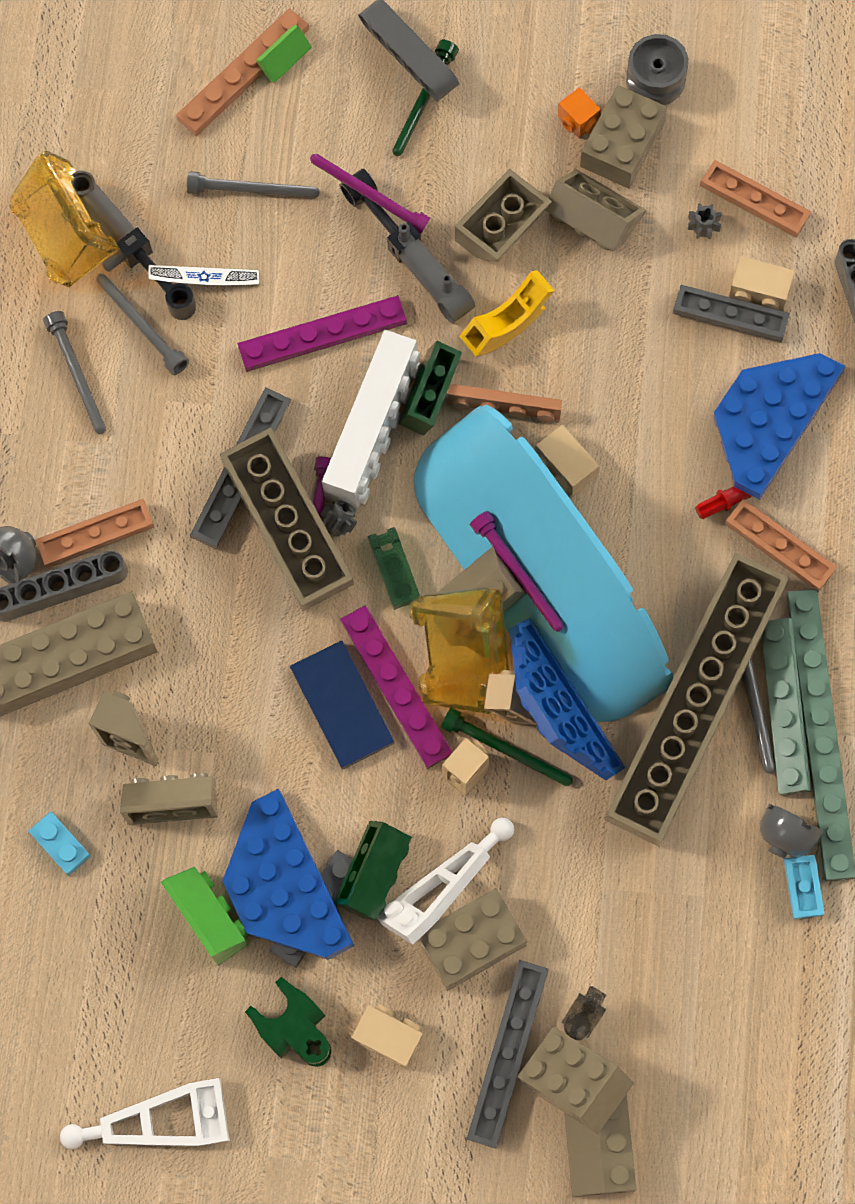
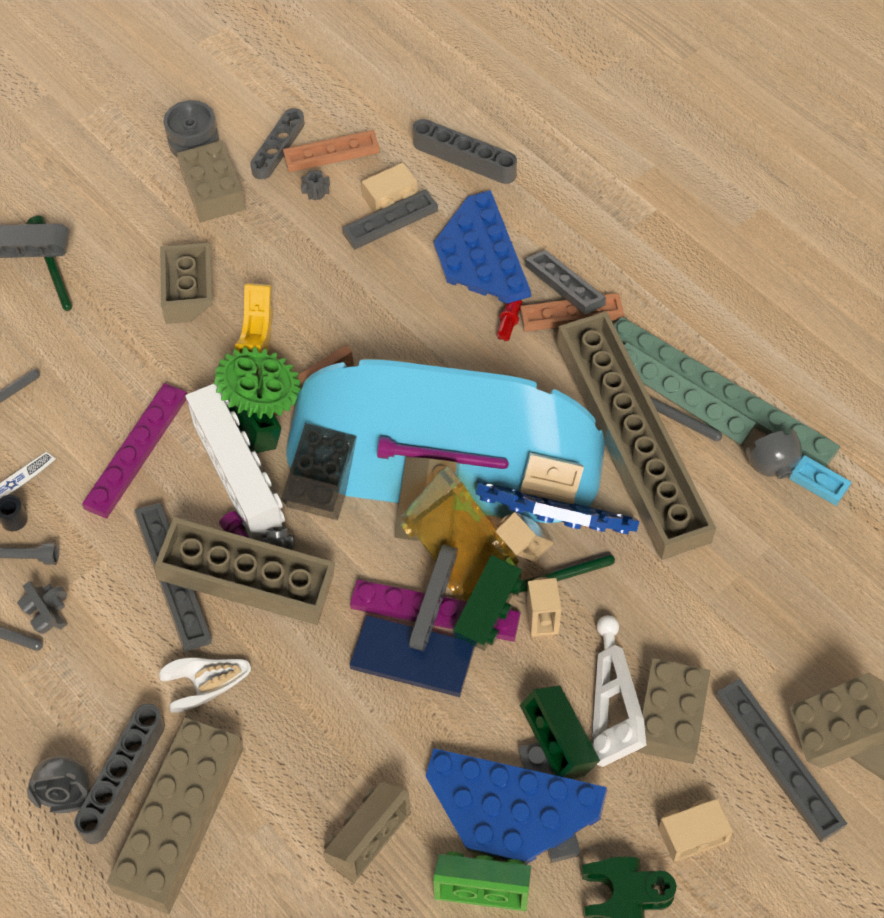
camera: 50 degrees left, 15 degrees down
(94, 533) = (109, 713): nougat plate -> none
(121, 727) = (287, 808): dark tan slope -> none
(133, 403) = (48, 602): none -> dark grey hips
(188, 575) = (209, 678): none -> white animal
(394, 568) = (350, 540): clear green plate -> none
(395, 677) = (433, 597): none -> dark grey beam
(408, 248) = (139, 350): dark grey piece -> none
(418, 220) = (127, 332): magenta piece -> none
(423, 492) = (320, 472): none -> clear smoke slope
(427, 724) = (489, 603): none -> dark green brick
(432, 351) = (238, 382): none -> bright green gear
(578, 113) = (167, 191): orange brick -> none
(582, 674) = (551, 478): none -> tan plate
(584, 1014) = (797, 678): clear smoke hips -> none
(594, 210) = (240, 234): dark tan slope -> none
(719, 144) = (274, 142): none -> dark grey beam
(801, 514) = (565, 282): none -> dark grey plate

